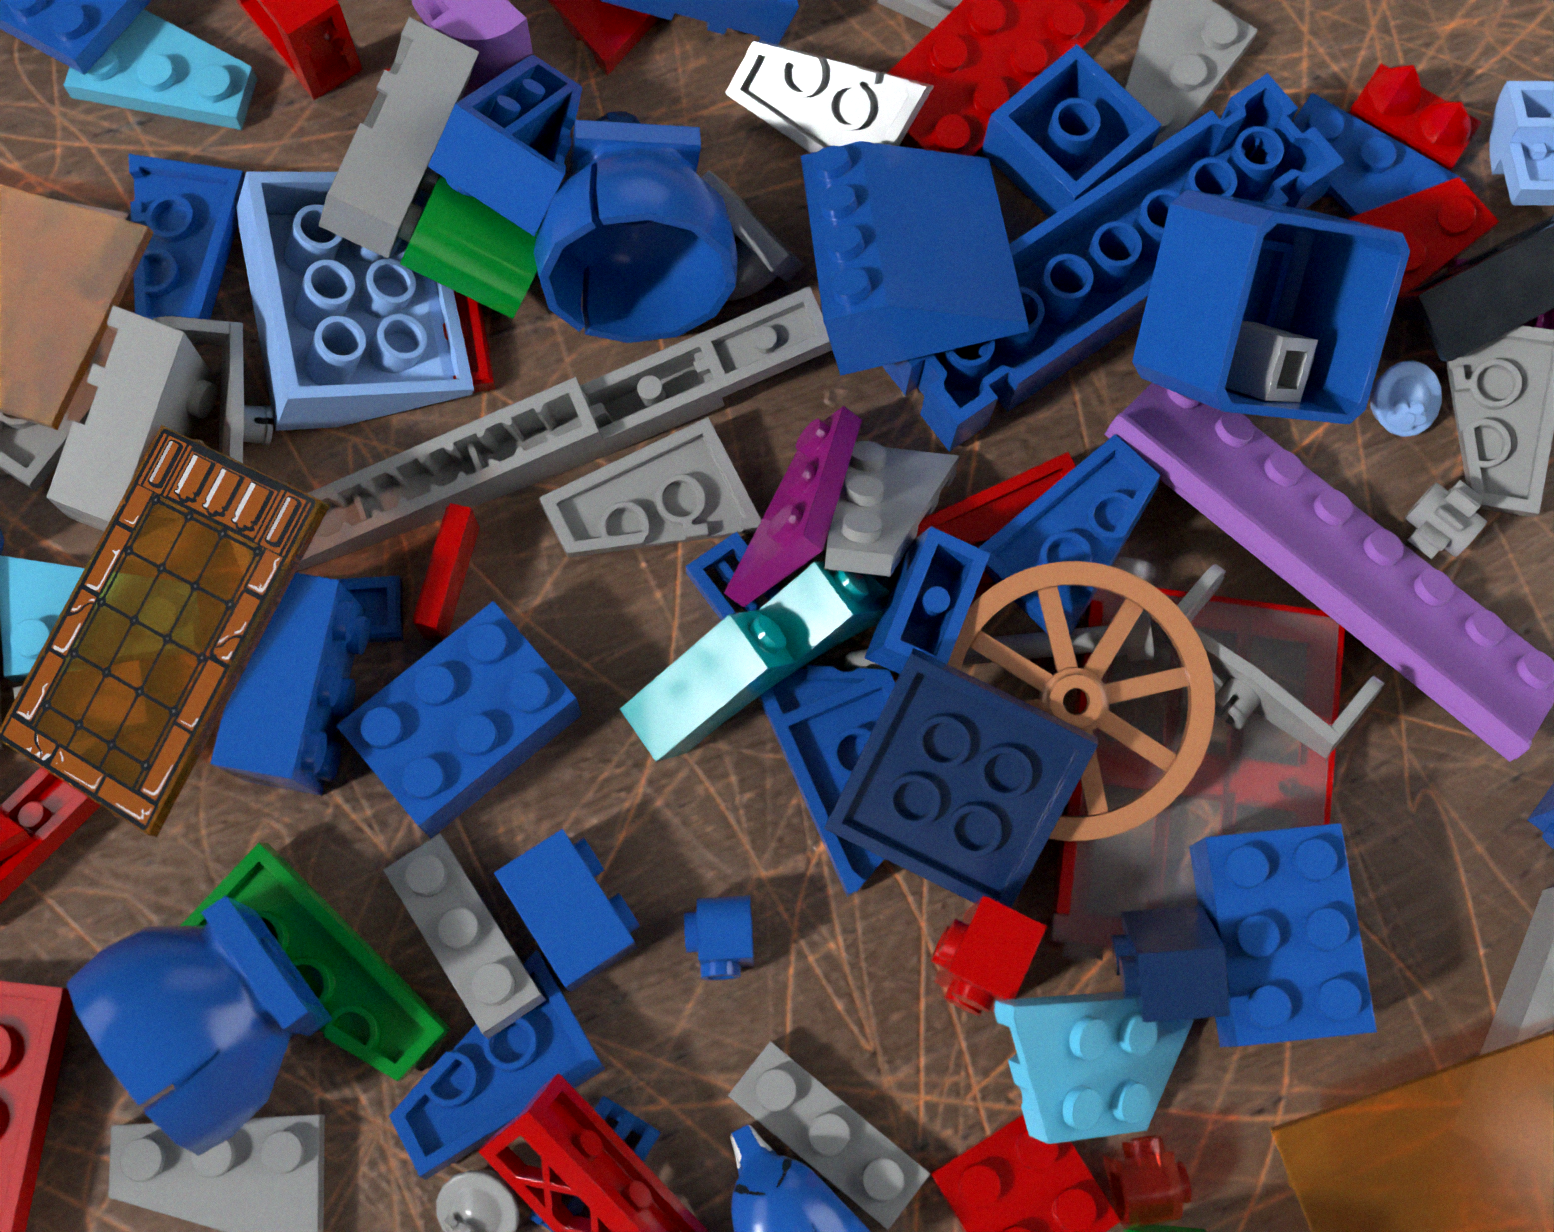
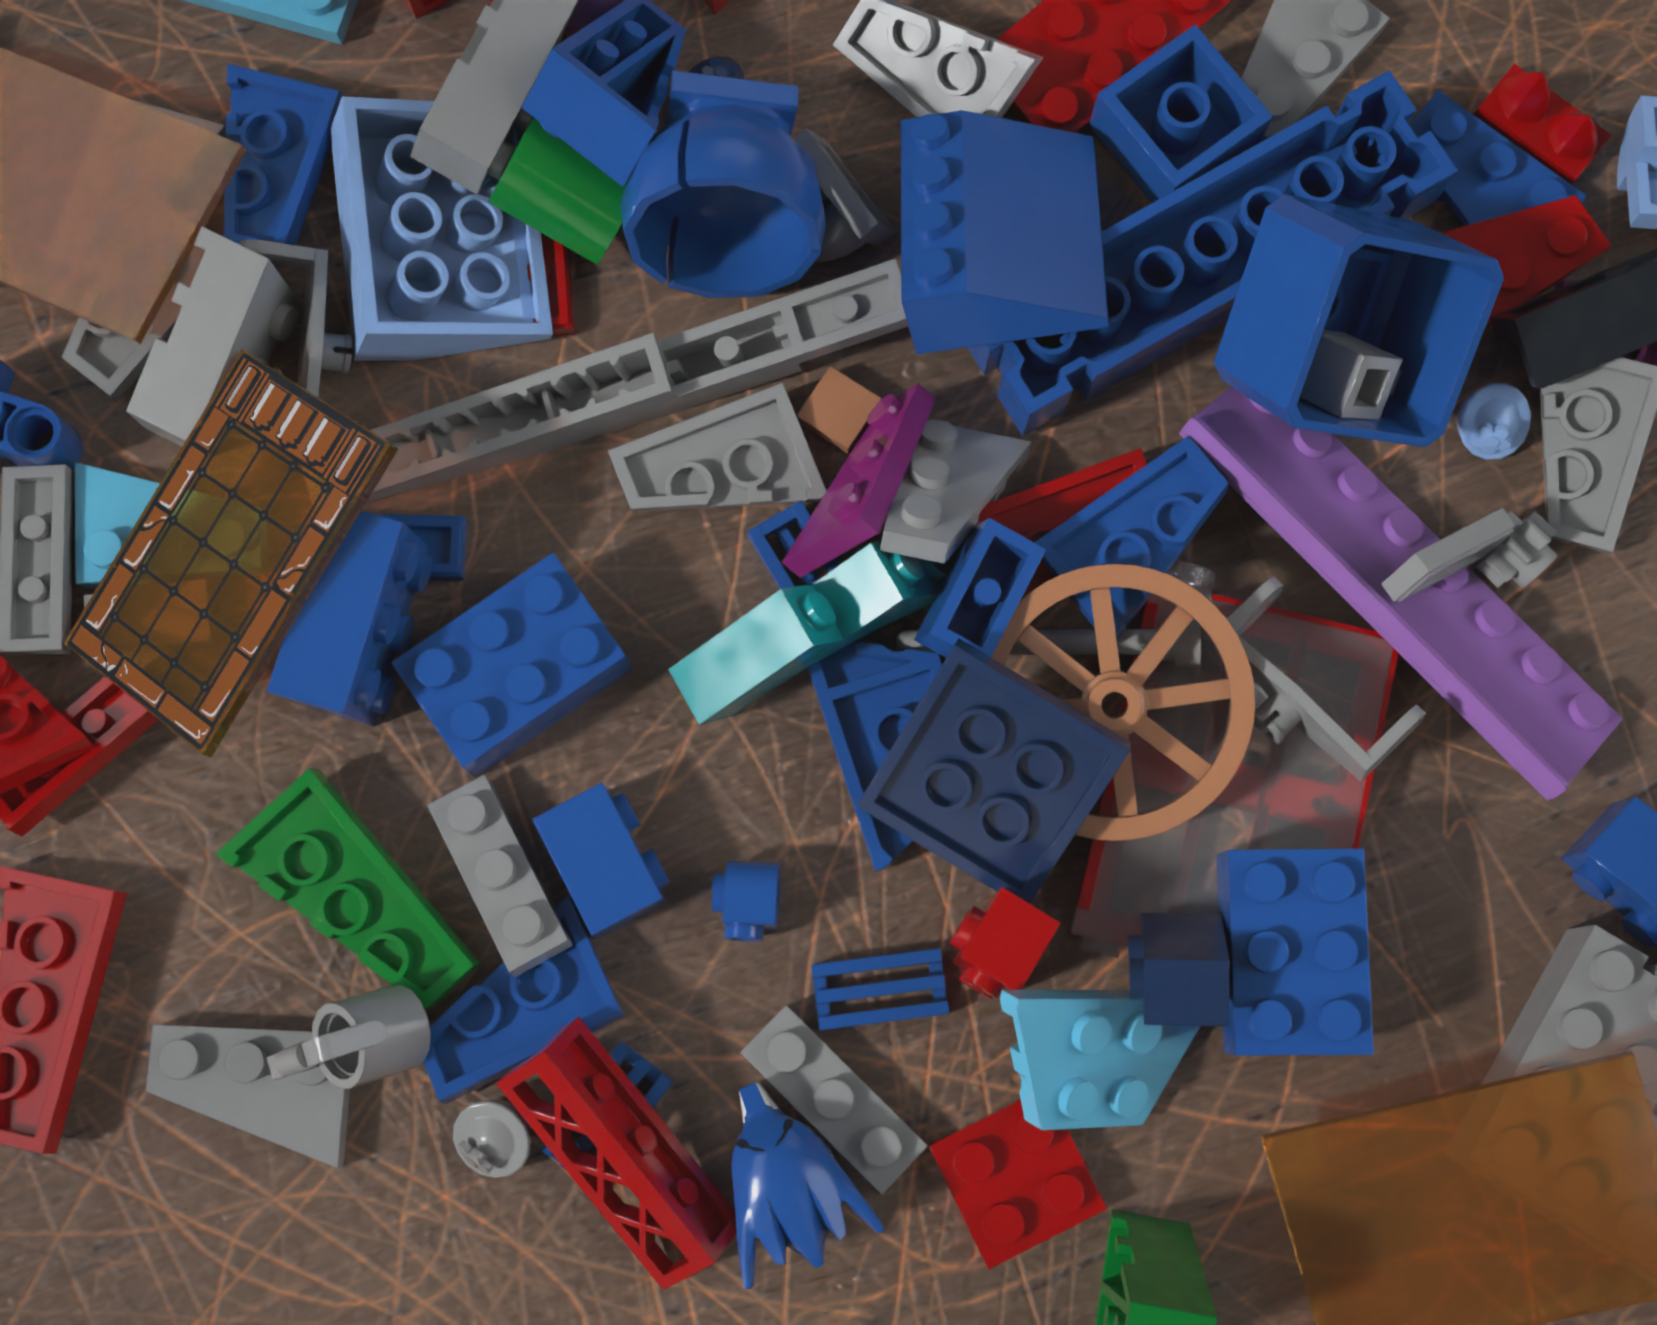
camera: 10 degrees right, 5 degrees up
(199, 1014) = (239, 928): blue plate -> none
(332, 1118) = (361, 1039): none -> light grey piece
(446, 572) = (510, 518): red tile -> none
(765, 441) = (838, 410): none -> nougat tile
(919, 1003) = (935, 981): none -> blue tile
(1147, 1182) = (1137, 1174): clear red plate -> none
(1384, 528) = (1448, 555): none -> light grey tile

